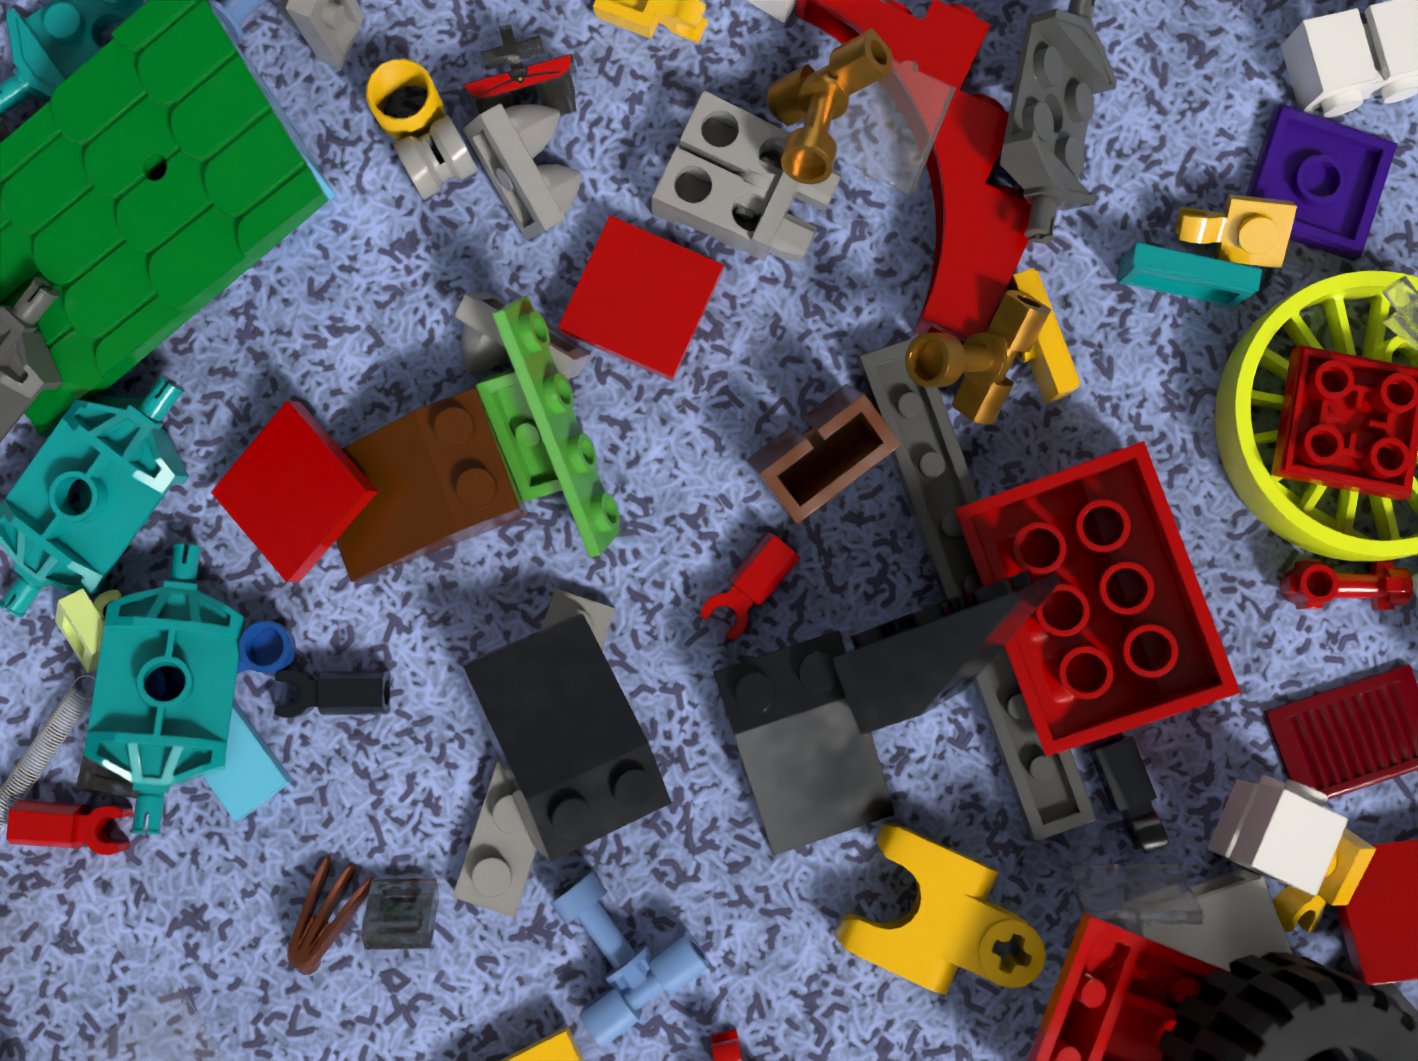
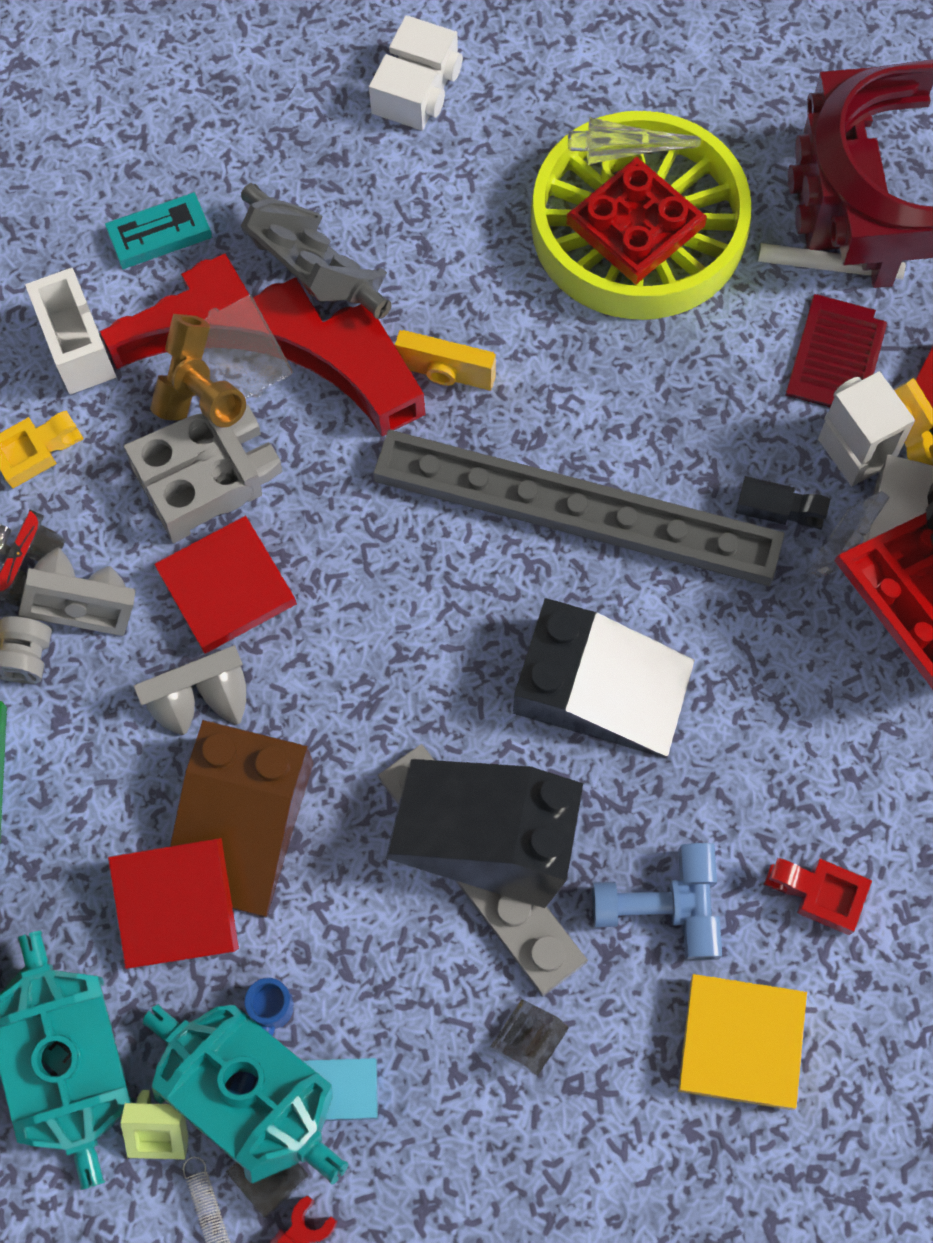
camera: 55 degrees left, 15 degrees down
(314, 933) = (501, 1112): copper piece -> none
(337, 693) = (337, 979): black bar -> none
(539, 429) = (263, 703): bright green bracket -> none
(754, 581) = (471, 643): red bar -> none
(837, 448) = (422, 531): reddish brown piece -> none
(935, 652) = (606, 550): black slope -> none
(947, 923) = (789, 669): yellow piece -> none
(983, 358) = (433, 396): pearl gold bar -> none
(1127, 622) = (639, 433): red slope -> none
(1188, 275) = (473, 252): teal tile -> none
(1246, 233) = (471, 204): yellow plate -> none
(1313, 584) = (723, 307): red bar -> none
(1328, 173) = (472, 148): dark purple tile -> none

